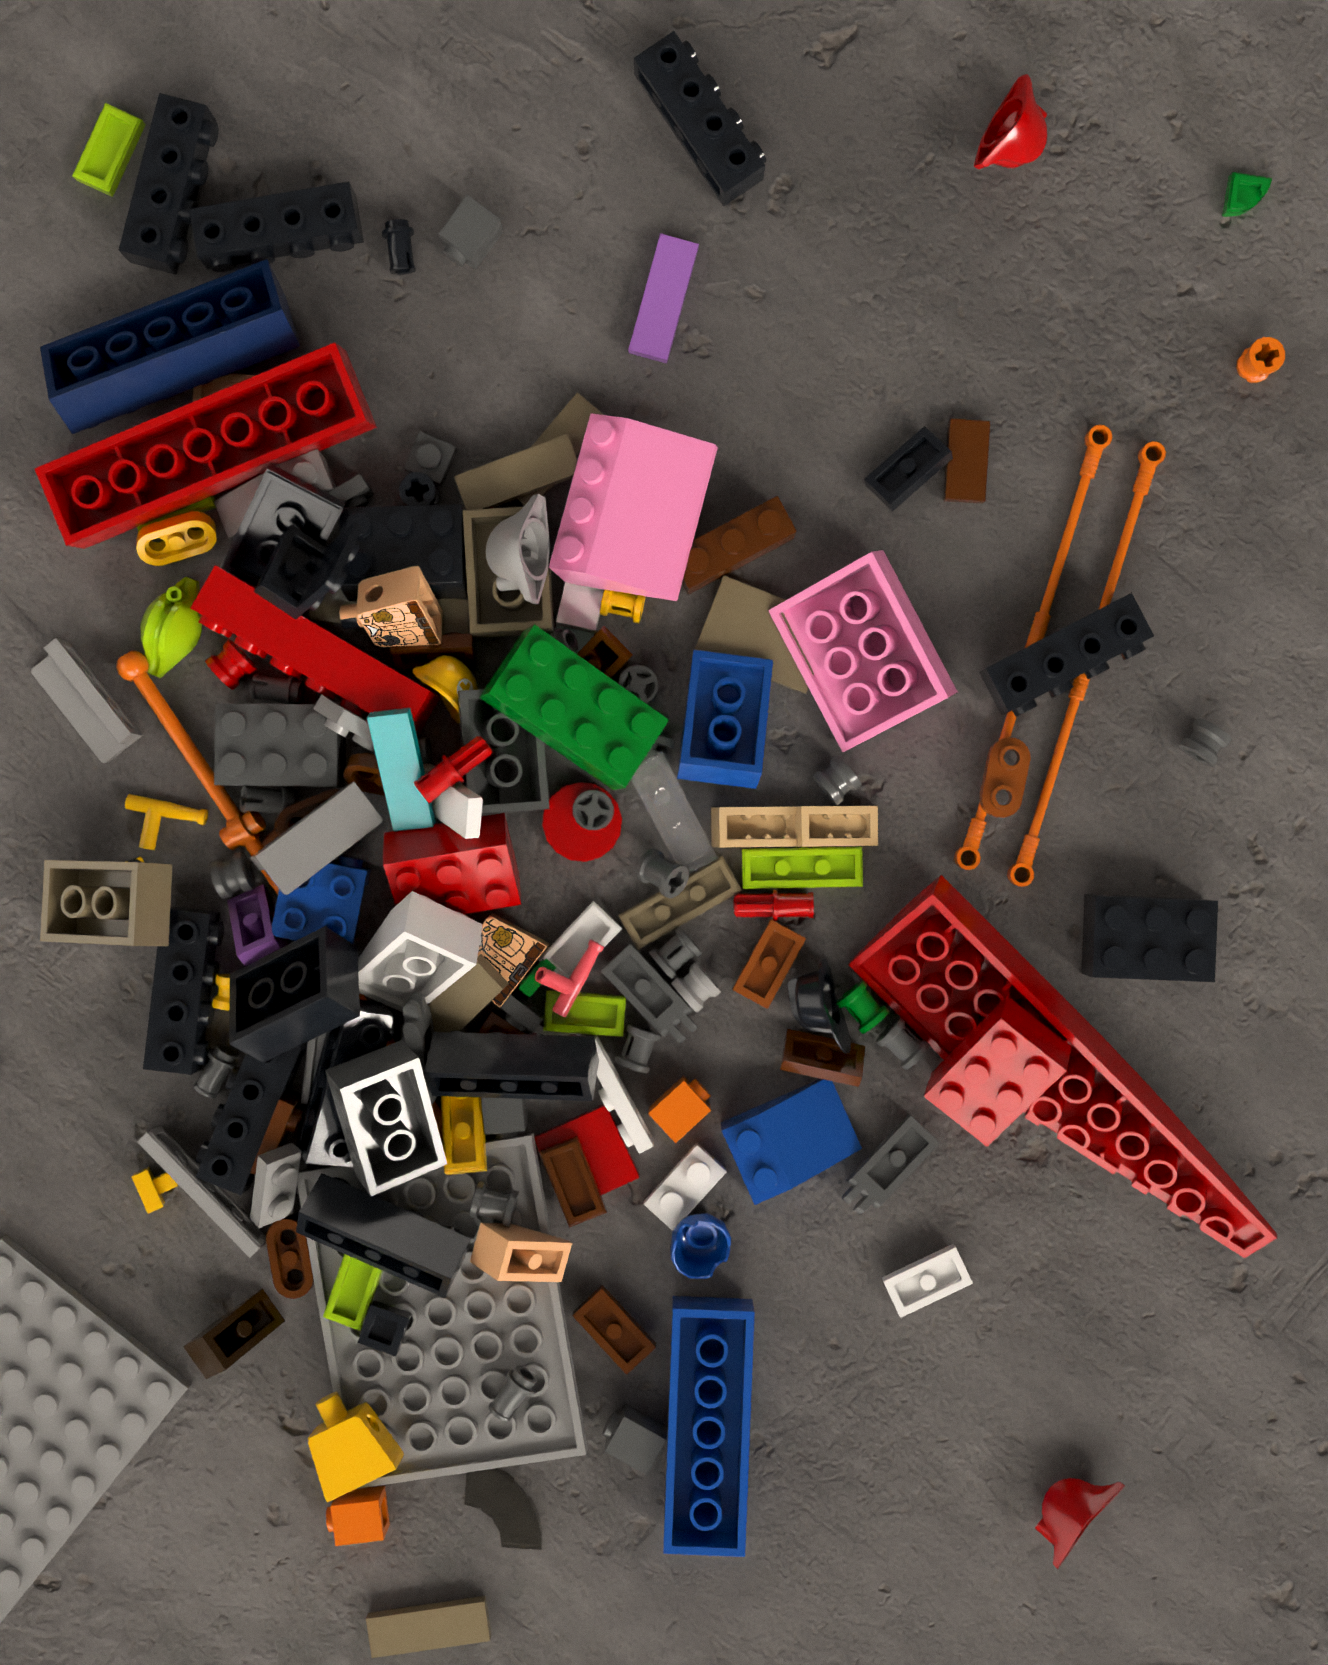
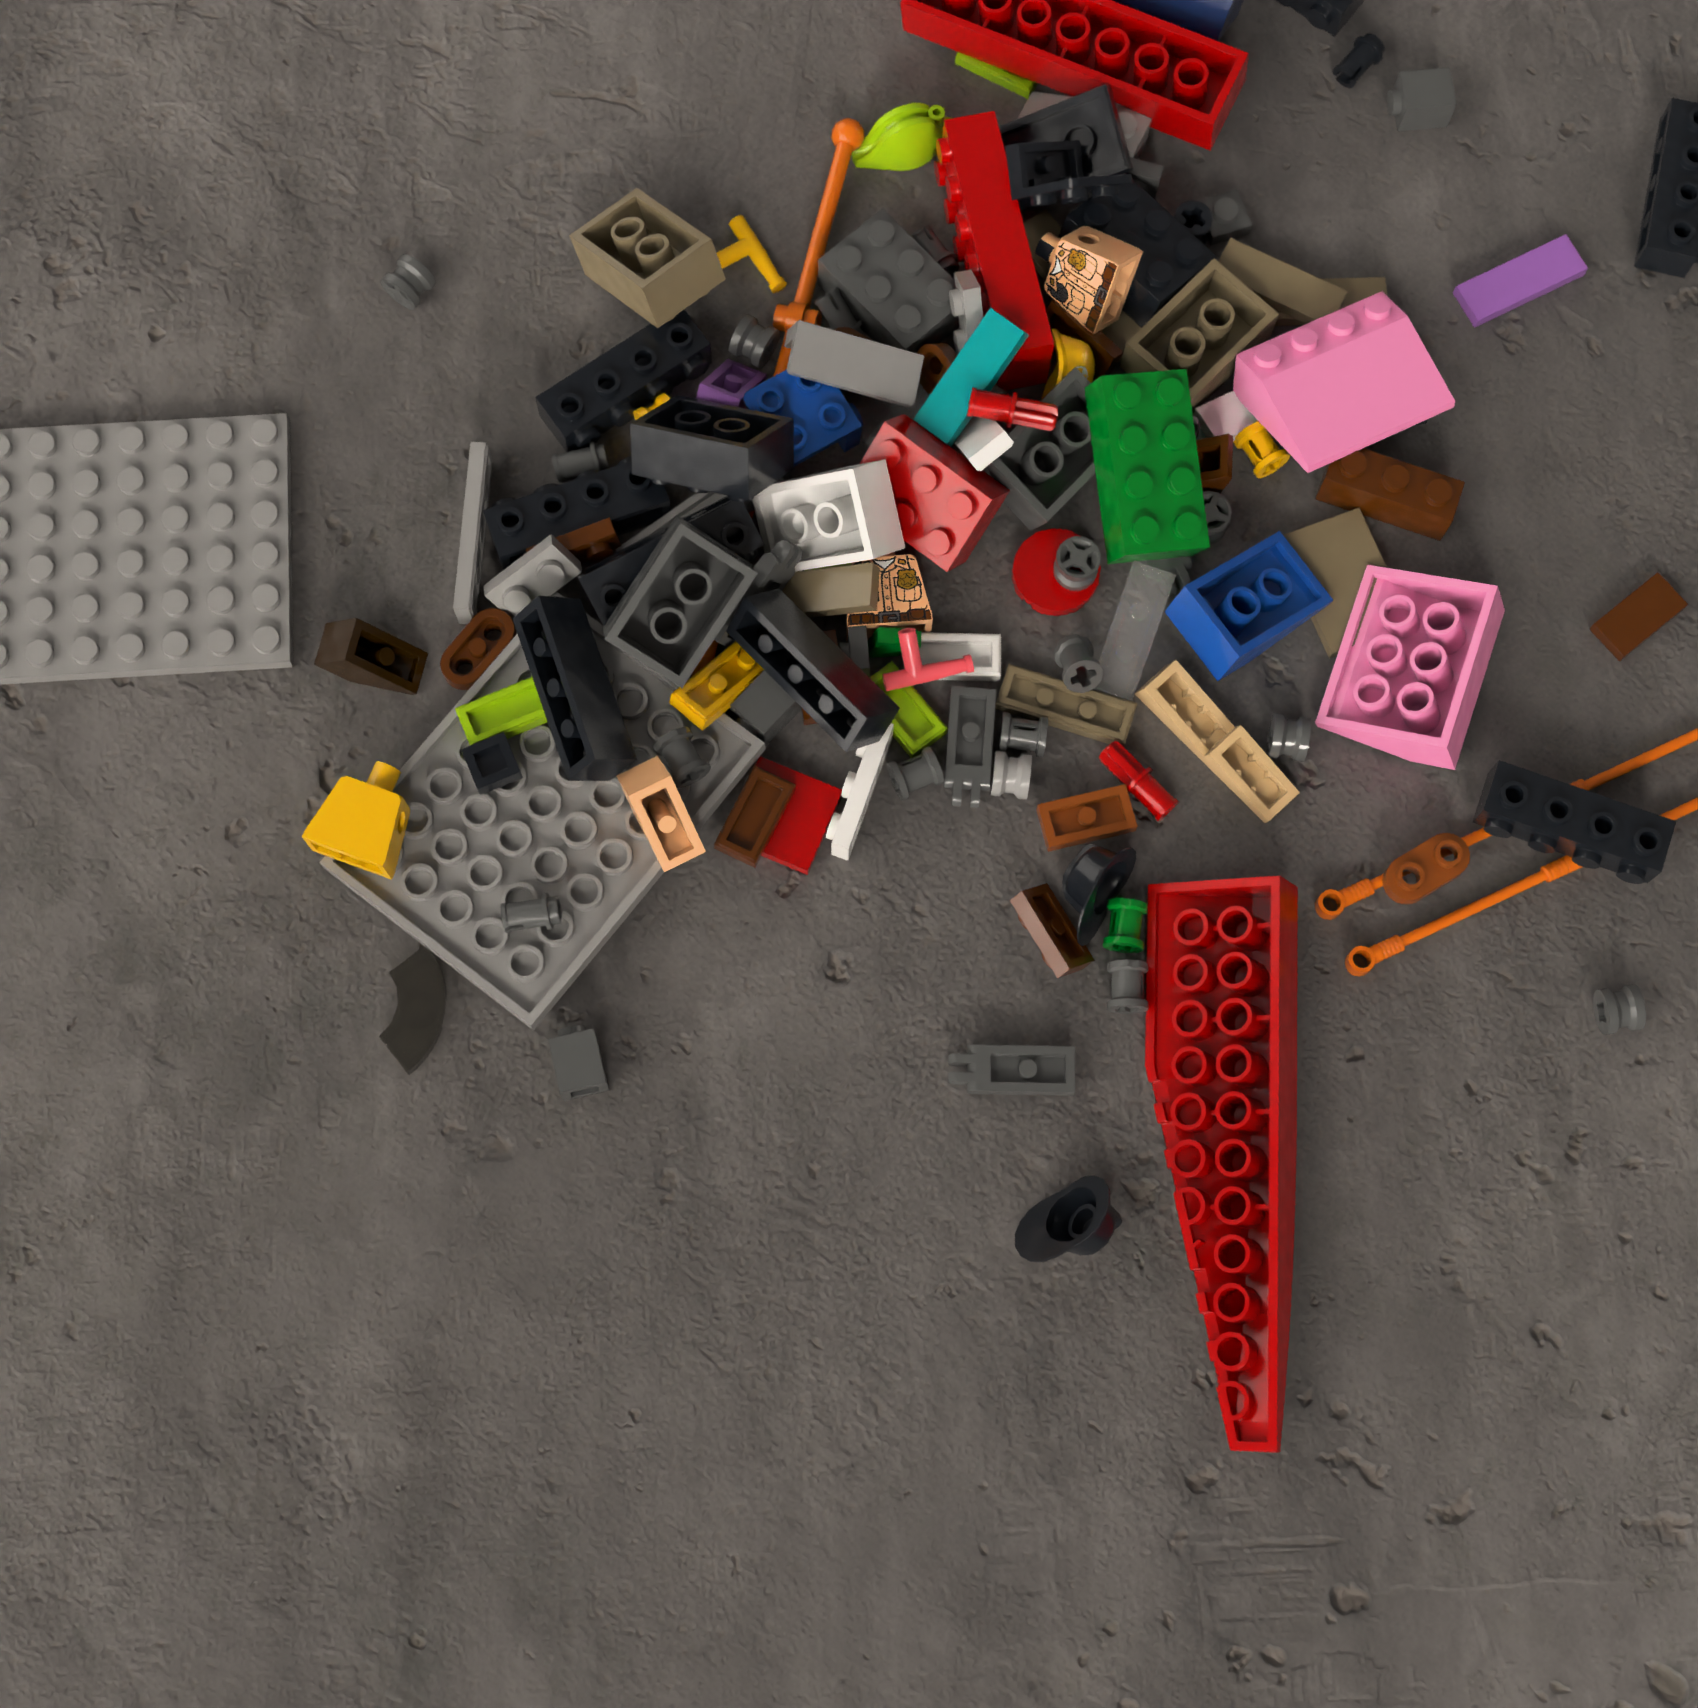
camera: 45 degrees right, 15 degrees down
(85, 701) = (785, 126): light grey panel -> none
(151, 1188) = (439, 492): yellow tile -> none
(178, 540) = (980, 85): yellow plate -> none
(230, 664) = (920, 203): red wheel -> none
(359, 1516) = (302, 890): orange brick -> none
(428, 1626) = (250, 1039): dark tan tile -> none
(521, 550) = (1232, 318): light grey hat -> none
(614, 1329) = (657, 964): reddish brown plate -> none
(681, 1107) = (899, 850): orange brick -> none
(685, 1186) = (833, 918): white plate -> none
(699, 1245) = (798, 967): blue hair -> none
(708, 1426) = (649, 1110): blue brick -> none
(790, 1139) = (958, 965): blue slope -> none
(802, 867) = (1190, 778): lime tile -> none
(908, 468) = (1586, 573): black plate -> none
(927, 1280) = (946, 1193): white plate -> none
(998, 1071) = (1185, 1072): brick -> none
(1016, 1226) = (1068, 1221): none -> black piece
(1069, 1510) = (863, 1512): red hat -> none
(1149, 938) = (1417, 1110): black brick -> none

